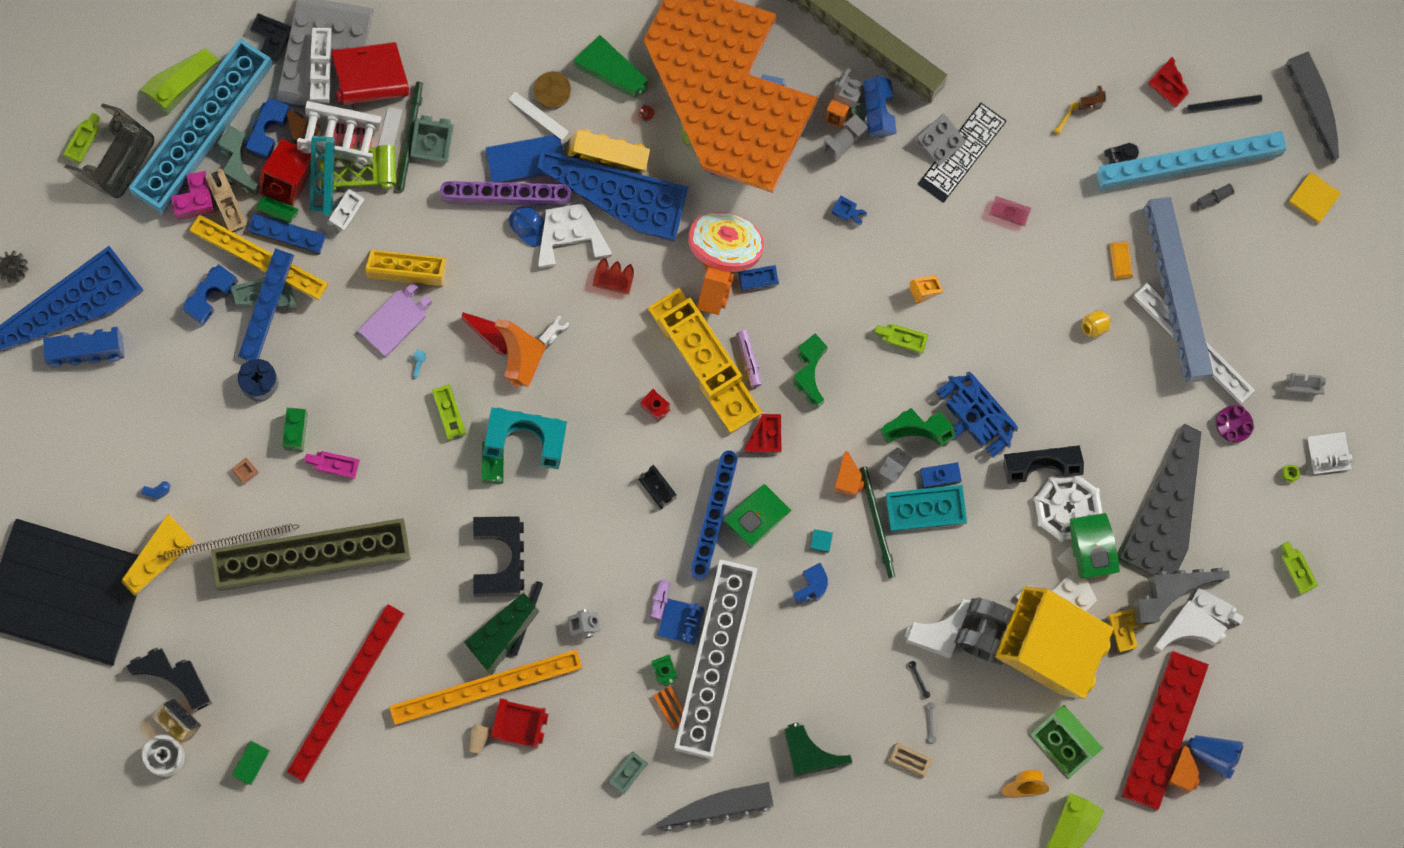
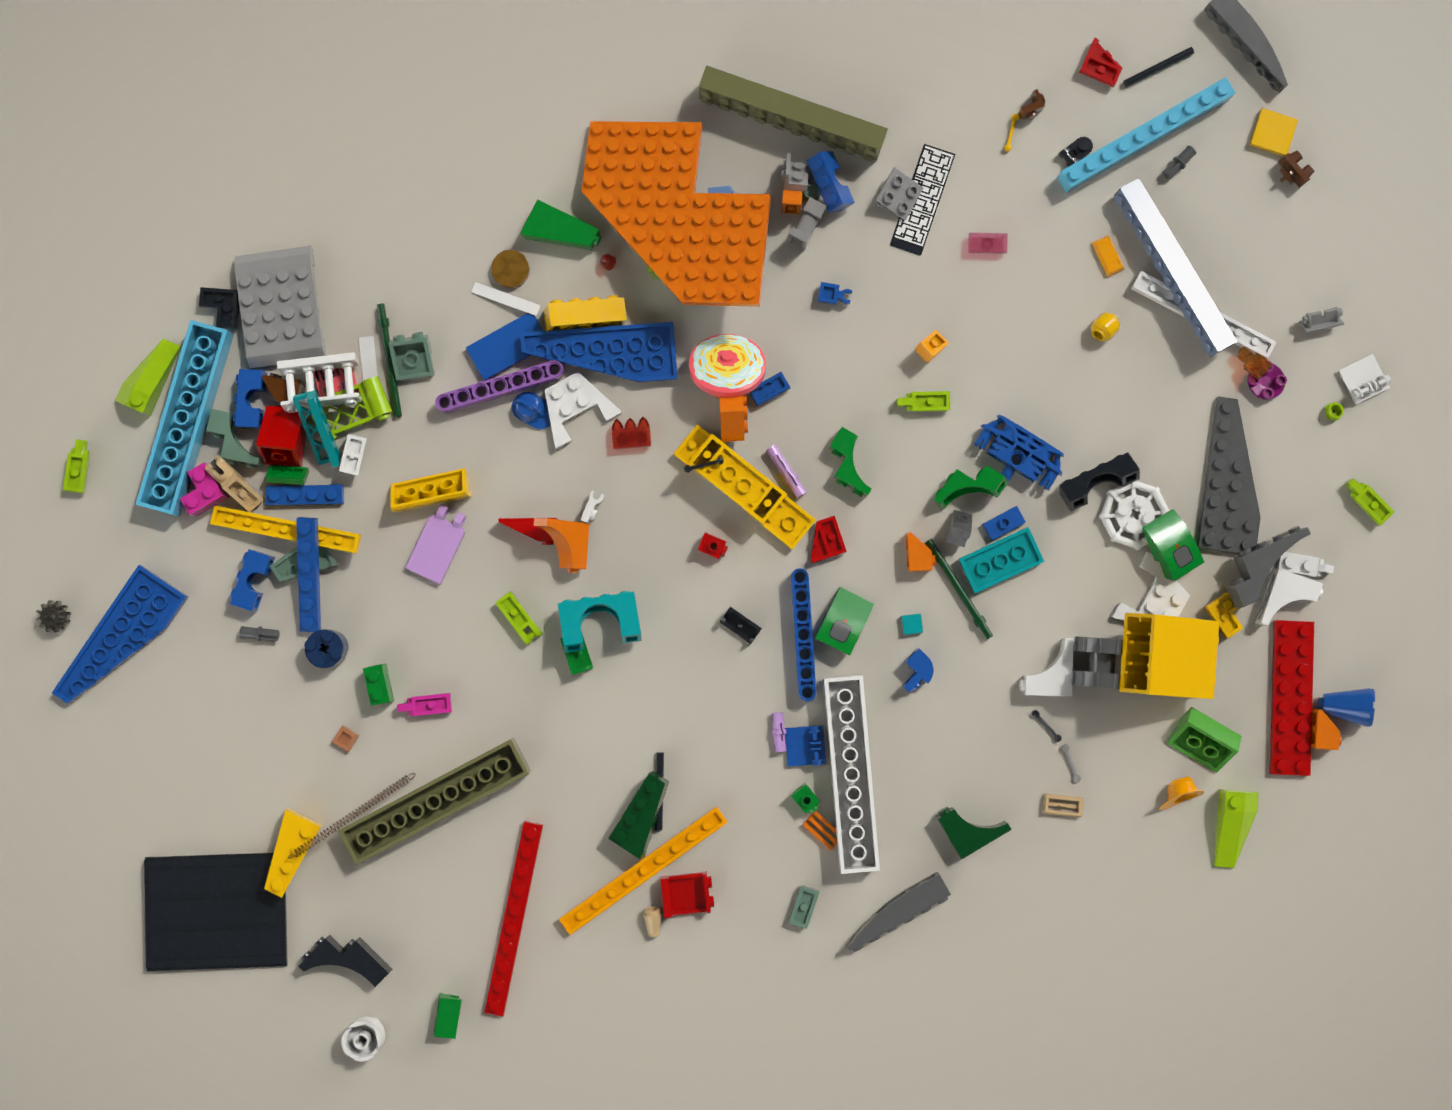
camera: 10 degrees left, 10 degrees up
(84, 347) = (150, 672): blue wedge -> none
(123, 157) = (121, 475): clear smoke windscreen -> none
(157, 492) = (270, 787): blue arm -> none
(176, 721) = (364, 1002): clear yellow brick -> none
(198, 346) = (259, 633): none -> dark grey axle
(320, 65) = (278, 320): white slope -> none
(369, 73) = (328, 312): red door -> none
(420, 357) = (473, 573): medium azure hand -> none
(508, 581) = (631, 762): black arch -> none
(584, 624) = (719, 781): light grey brick -> none
(657, 322) = (688, 468): none -> black hinge
(1227, 404) = (1255, 365): none -> clear orange plate
(1319, 238) = (1292, 171): none -> reddish brown hips

